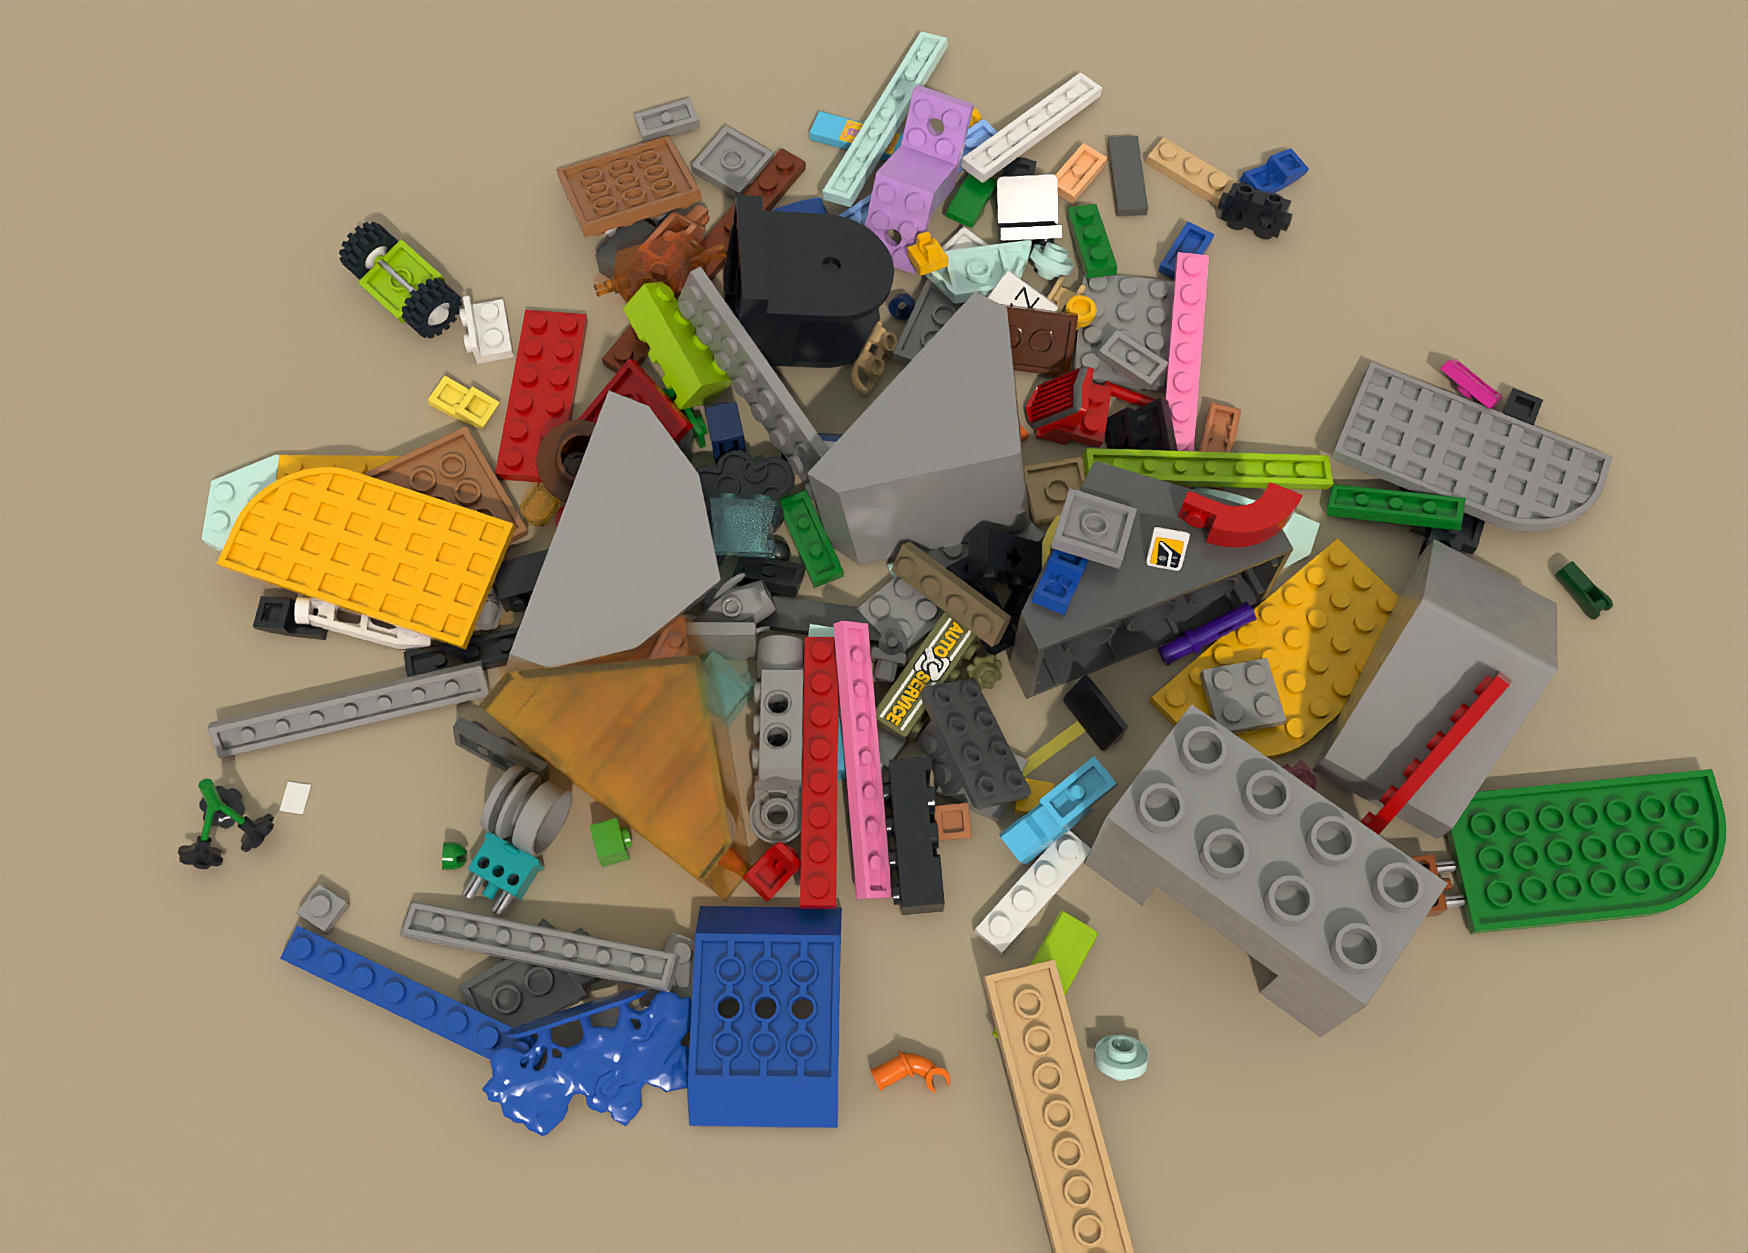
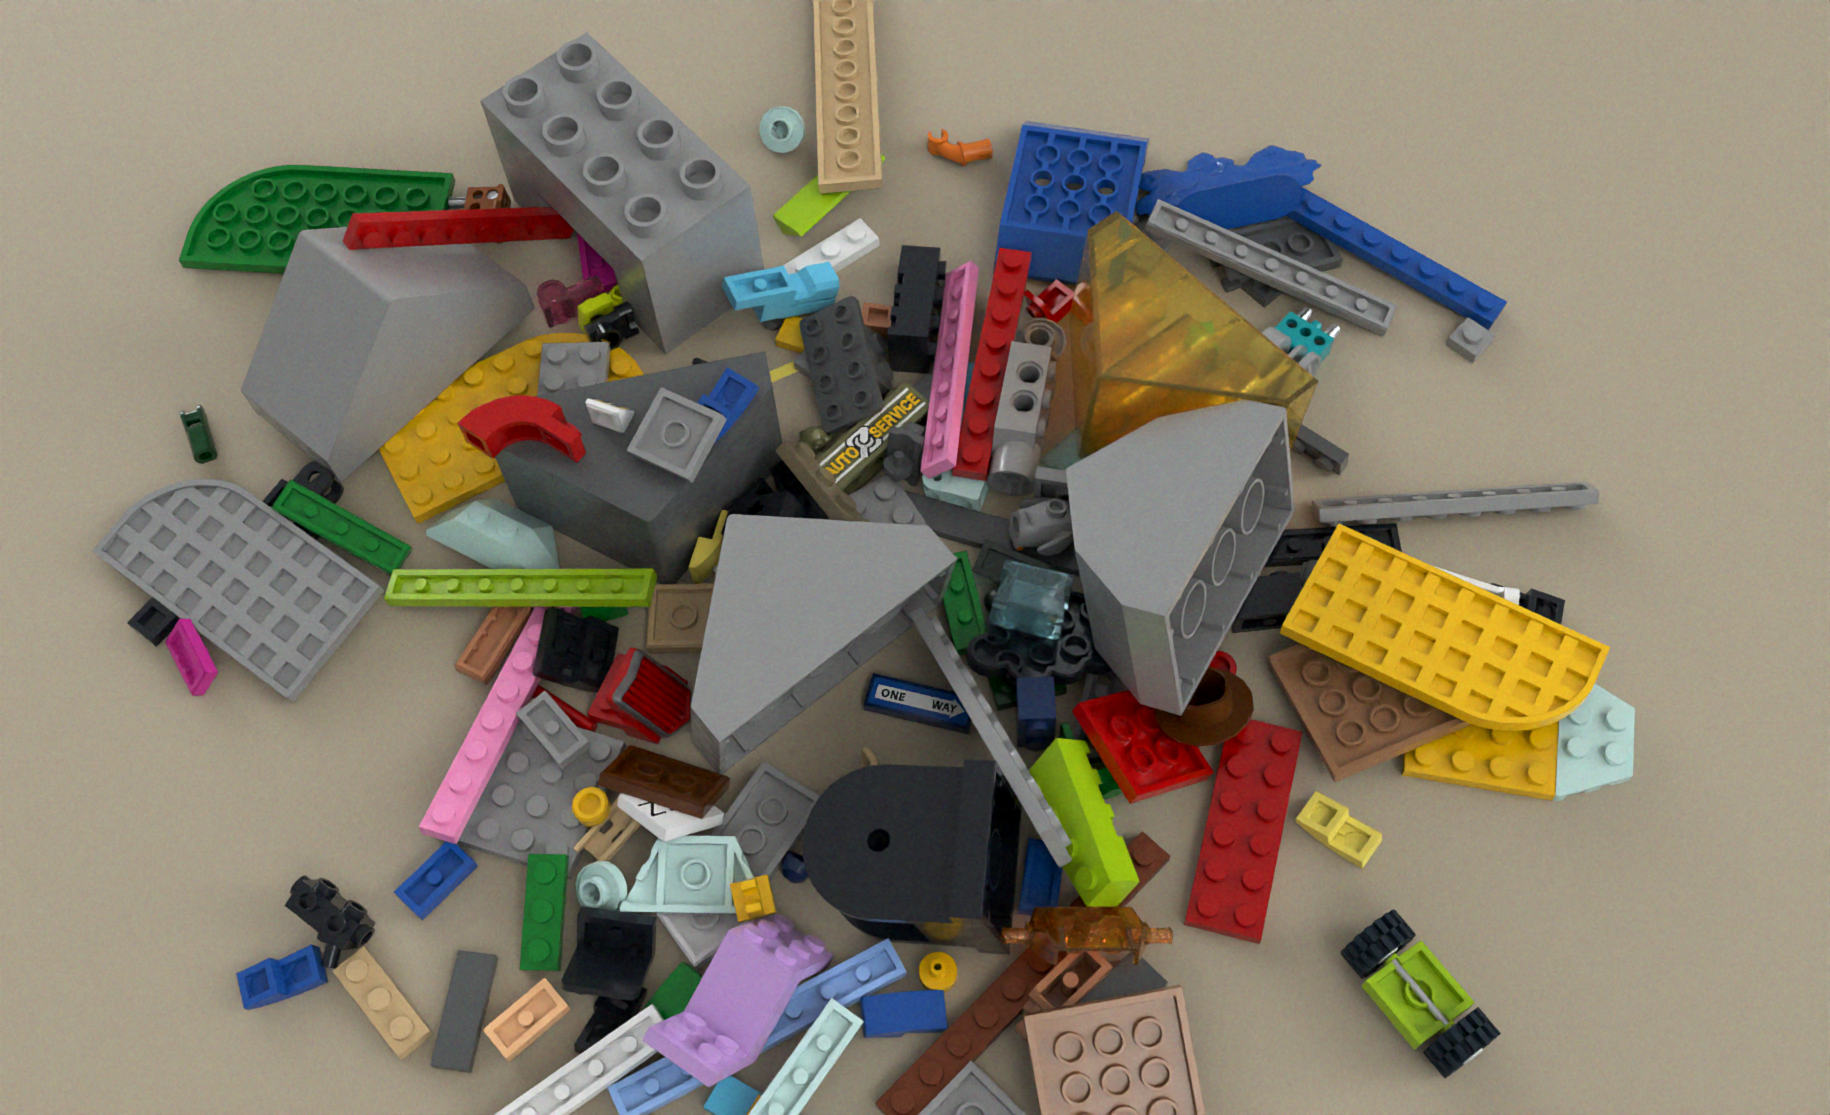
camera: 165 degrees left, 5 degrees down
(223, 808) = (1589, 395): black plant -> none
(295, 797) = (1505, 441): white sticker -> none
(451, 856) = (1348, 361): green hinge -> none
(487, 330) = (1310, 922): white bracket -> none
(539, 506) = (1259, 680): clear yellow arm -> none

